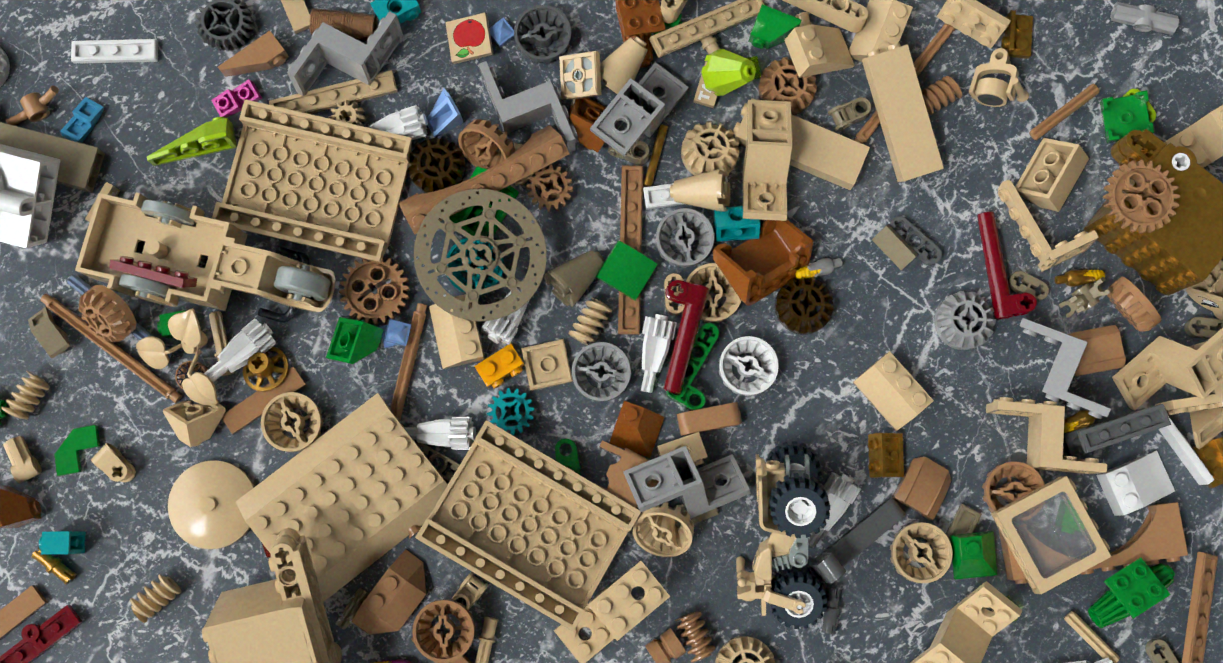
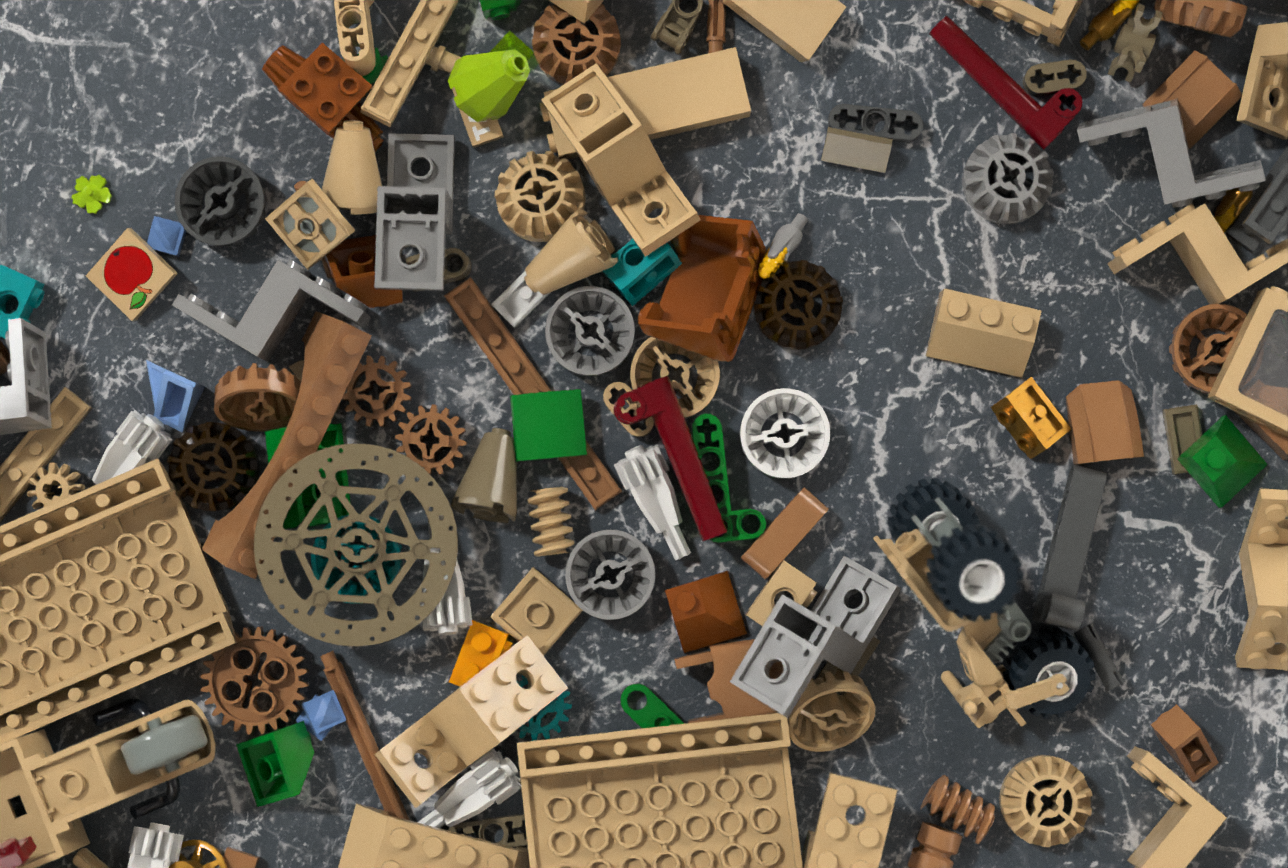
camera: 30 degrees left, 5 degrees up
(456, 337) = (402, 666): tan slope -> none
(470, 393) = (471, 721): none -> tan bracket
(566, 240) = (445, 441): none -> medium nougat gear
(655, 156) = (476, 251): pearl gold bar -> none
(841, 494) = (1007, 513): white piece -> none
(934, 565) = (1186, 511): tan gear -> none

